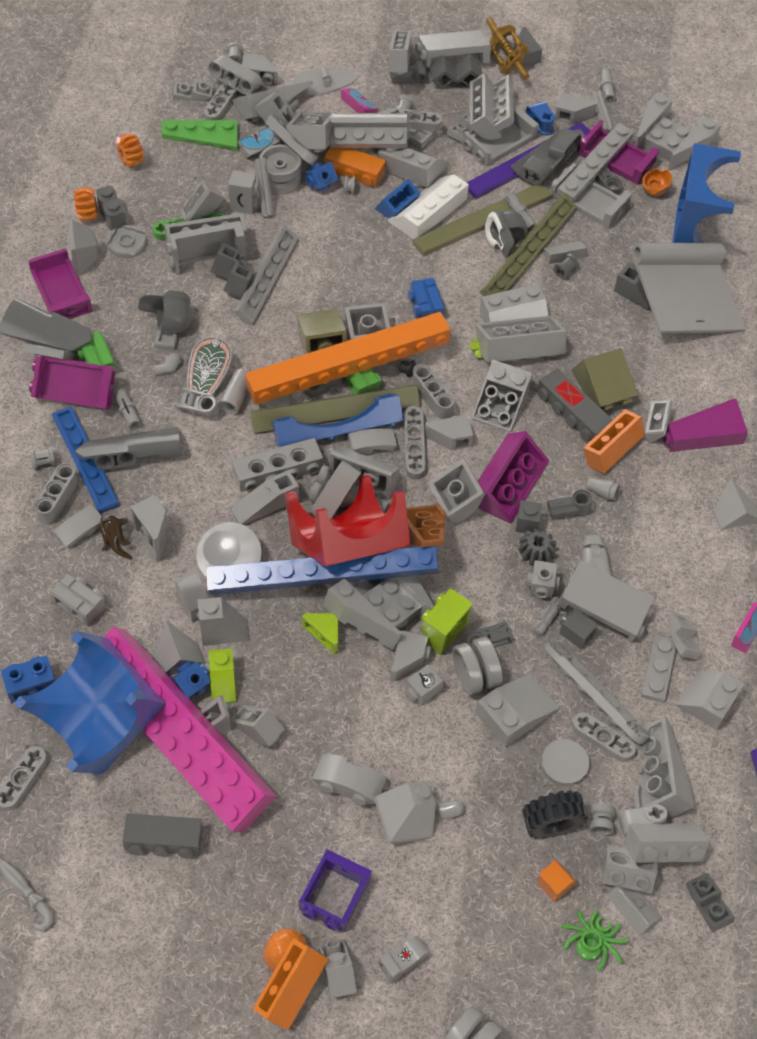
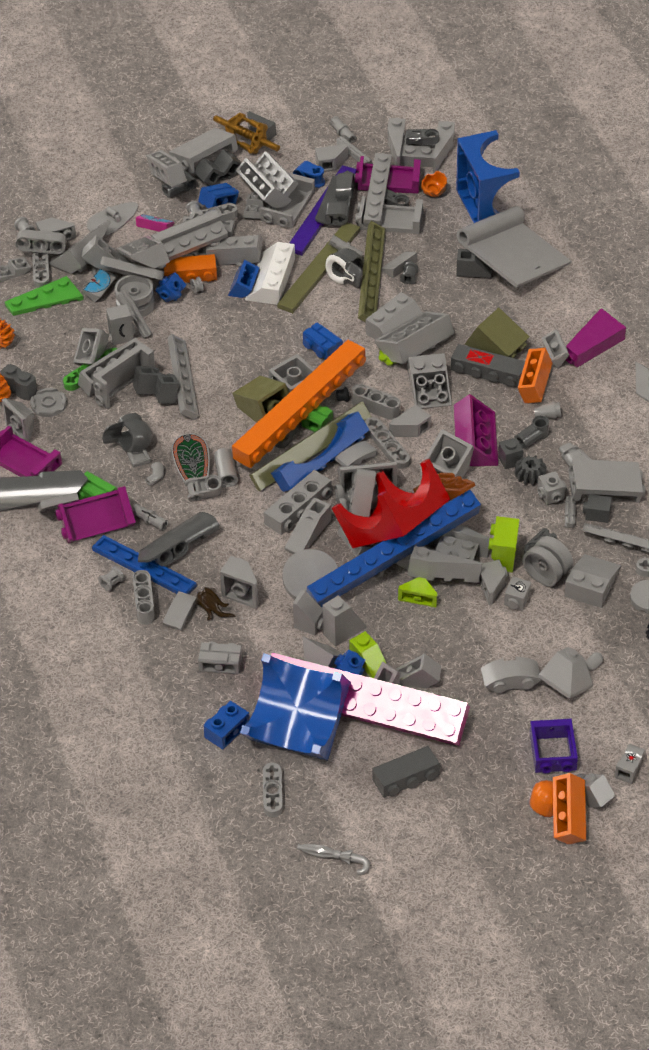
camera: 25 degrees left, 10 degrees down
(434, 100) = (218, 195): none -> blue brick
(674, 125) = (416, 136): none -> dark grey piece

